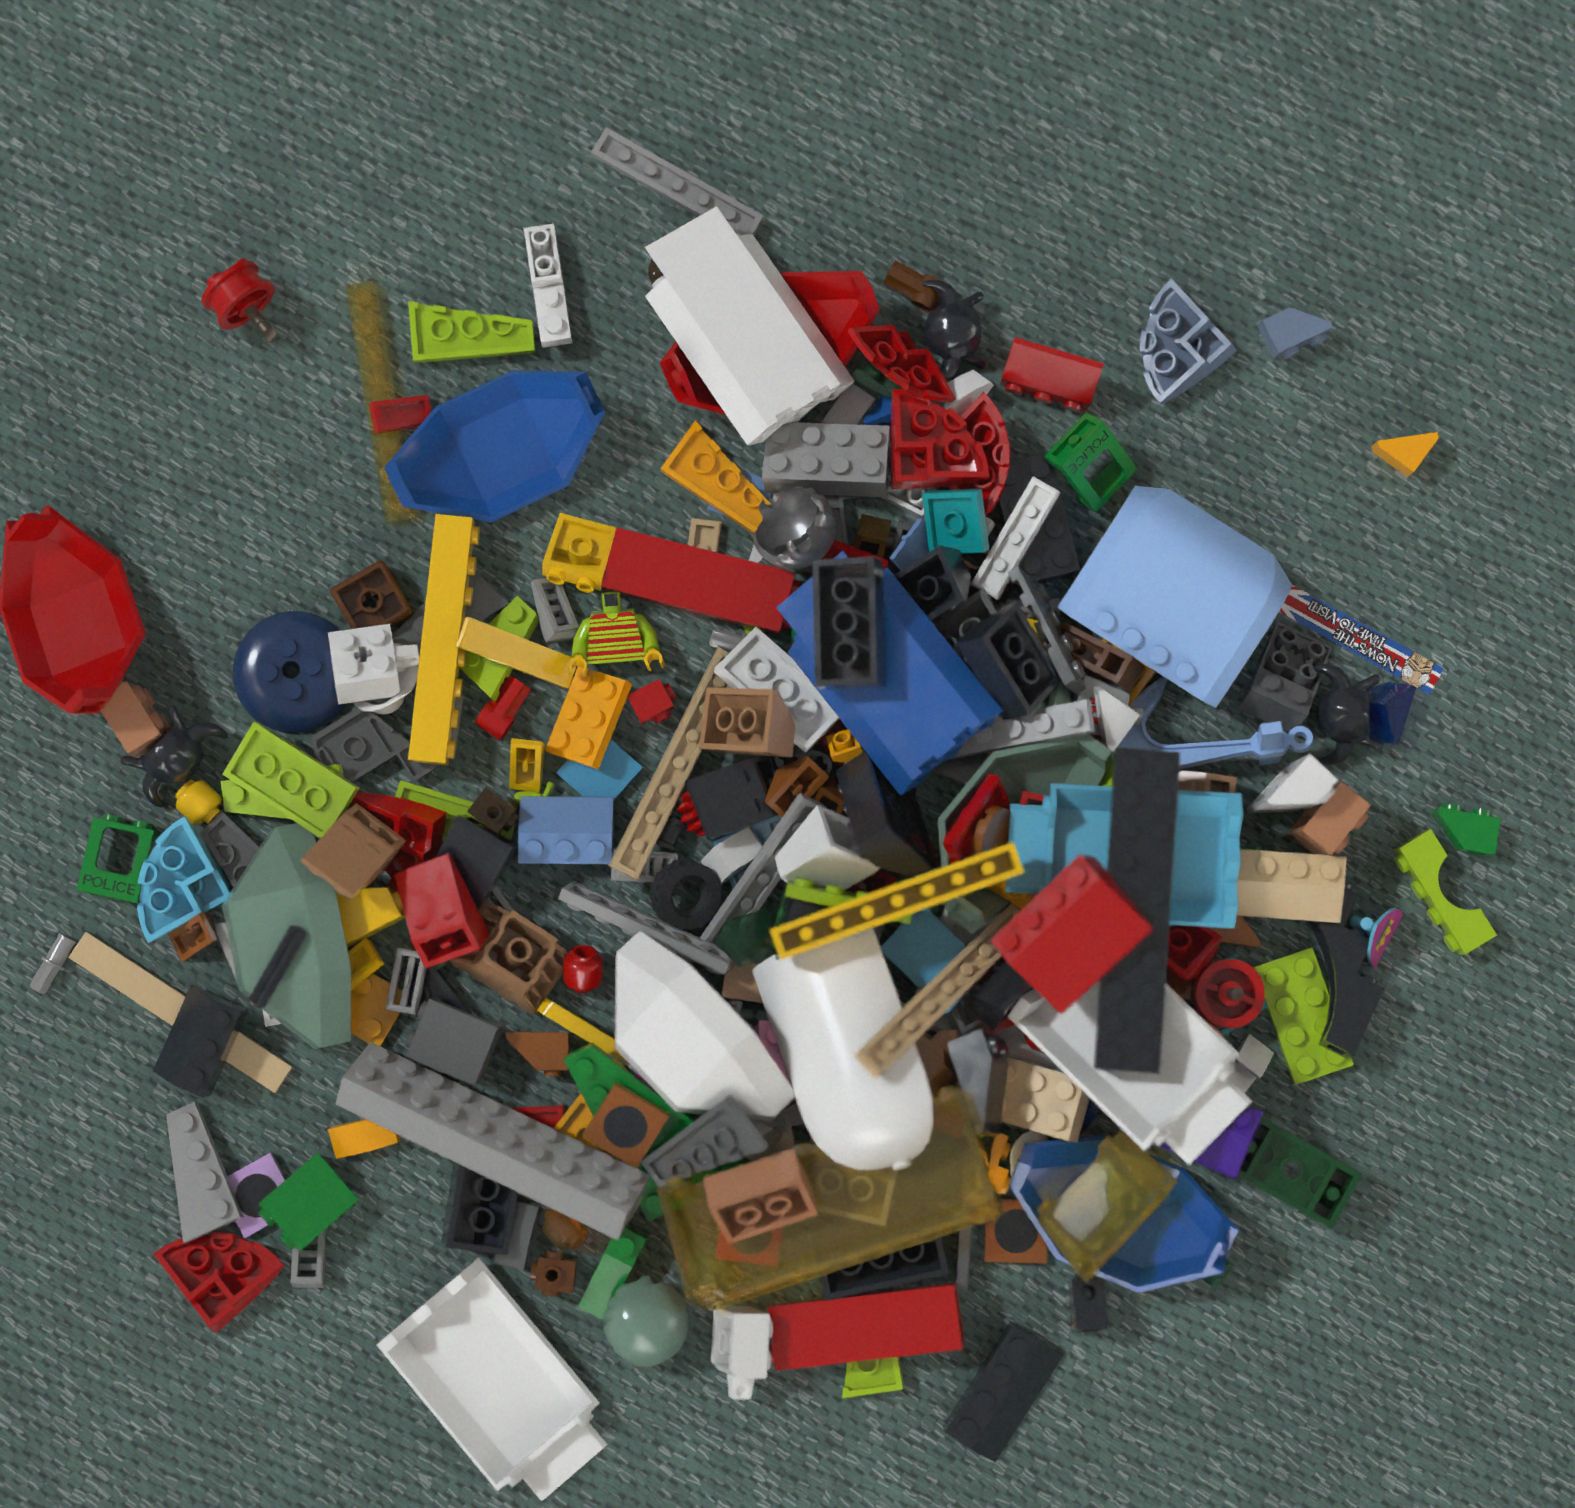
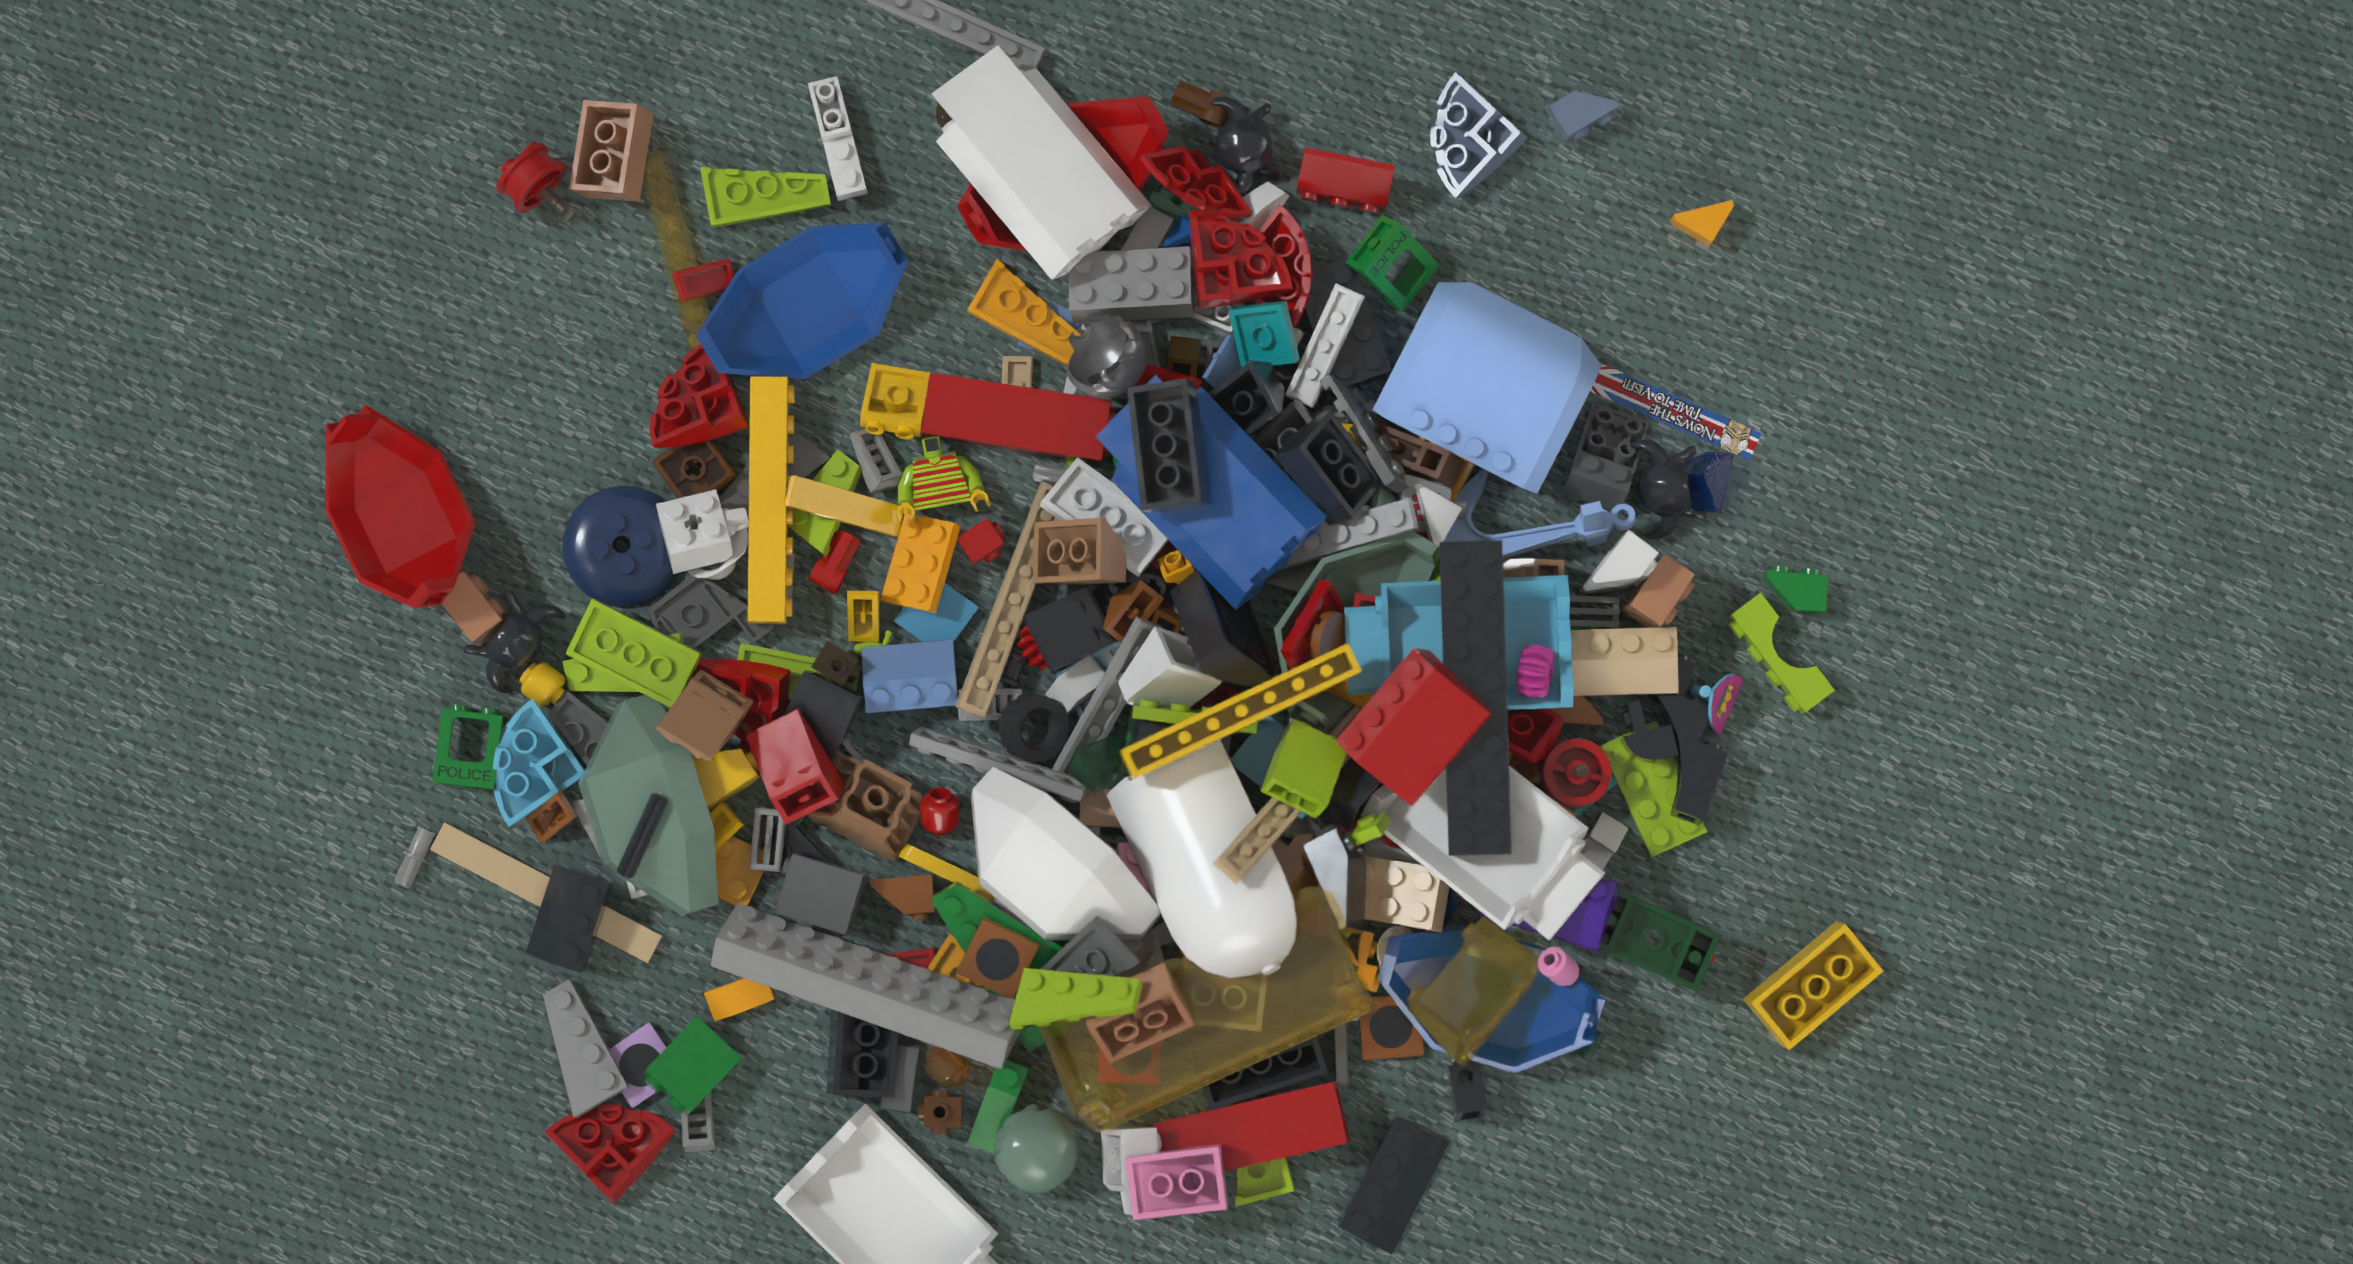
camera: 10 degrees left, 0 degrees up
(320, 275) = (611, 150): none -> nougat brick
(379, 537) = (696, 404): none -> red brick
(695, 1174) = (1068, 996): none -> lime wing
(785, 1372) = (1177, 1182): none -> bright pink slope
(955, 964) = (1304, 768): none -> lime brick
(1017, 1031) = (1370, 827): none -> lime plate
(1193, 1190) = (1558, 966): none -> bright pink brick
(1200, 888) = (1535, 670): none -> dark pink gear
(1280, 833) = (1614, 612): none -> light grey tile
(1302, 970) = (1644, 743): none -> black brick
(1447, 1231) = (1813, 985): none -> yellow brick

